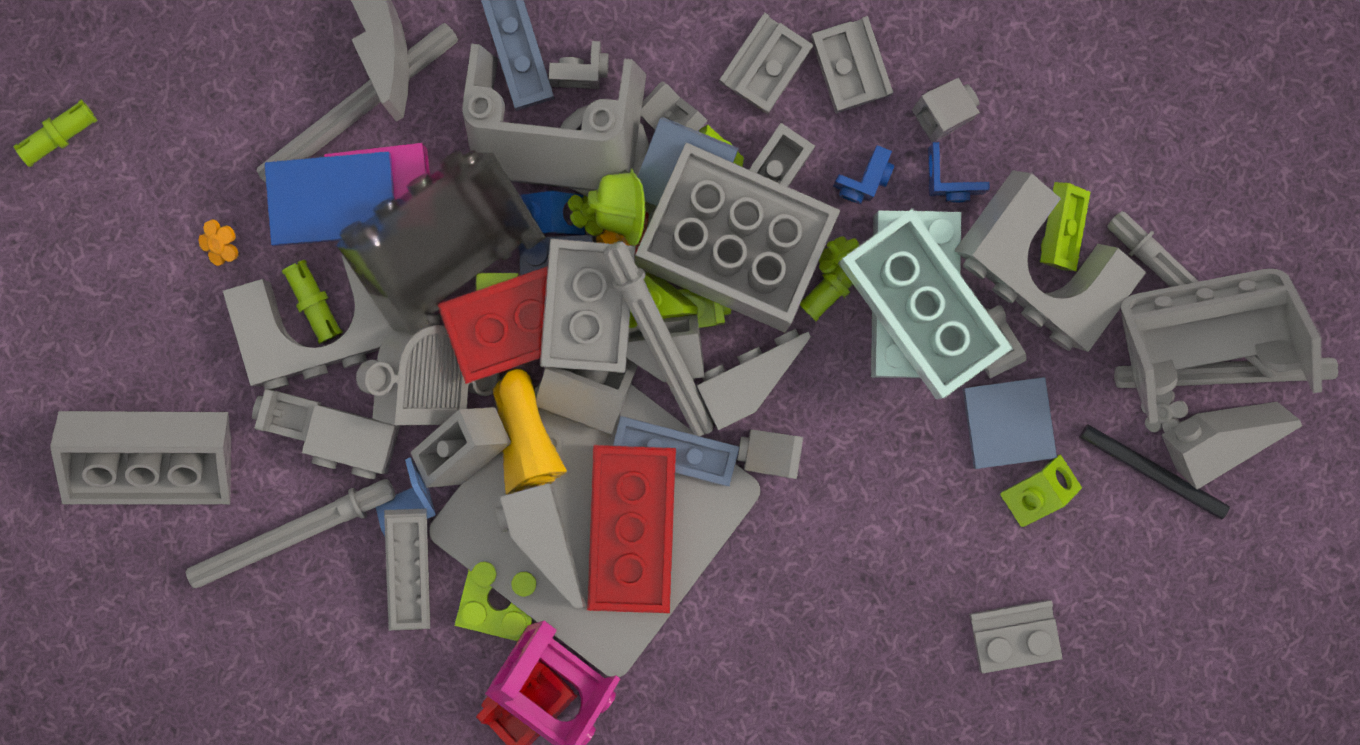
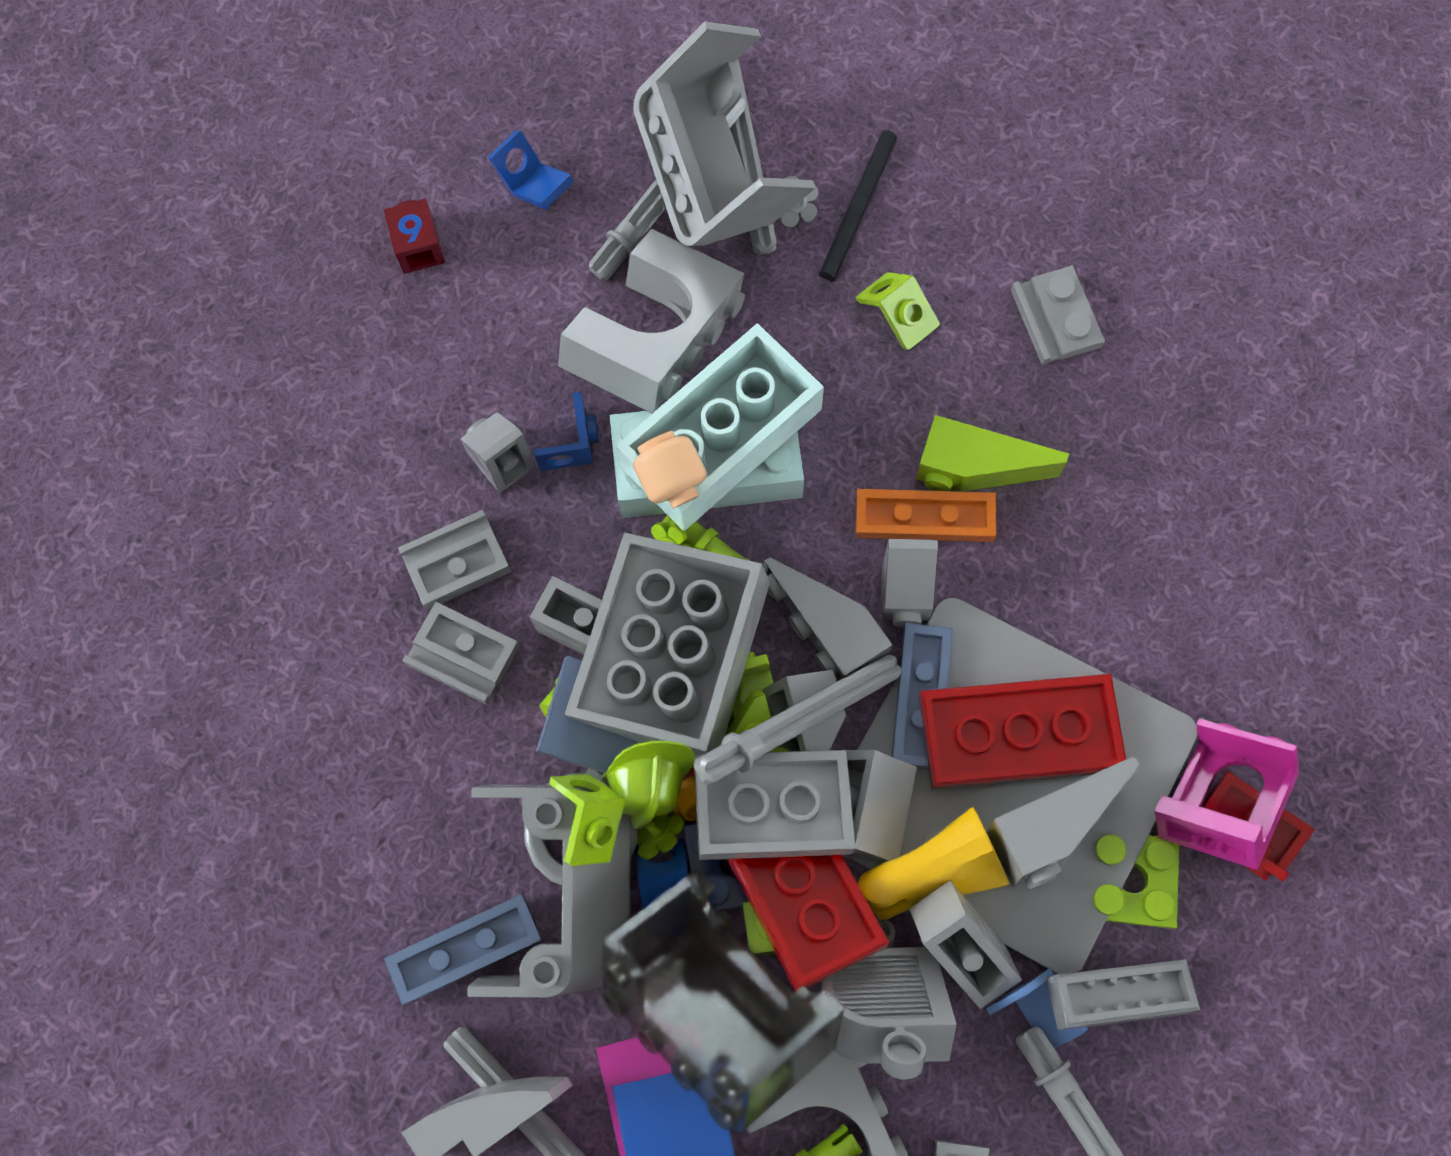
camera: 90 degrees left, 15 degrees down
(350, 440) = (977, 1093): light grey brick -> none
(573, 72) = (492, 875): light grey bracket -> none
(594, 158) = (594, 820): none -> lime bracket
(667, 104) = (520, 760): light grey bracket -> none
(836, 481) = (925, 515): none -> orange plate
(876, 173) = (578, 518): blue bracket -> none
(876, 251) = (669, 469): none -> light nougat head
(882, 533) = (974, 458): none -> lime slope
(1009, 423) = (834, 345): sand blue tile -> none
(1065, 227) = (635, 316): lime plate -> none
(1174, 52) = (414, 235): none -> dark red brick
(1220, 169) = (534, 180): none -> blue bracket
(1222, 439) = (814, 138): light grey slope -> none

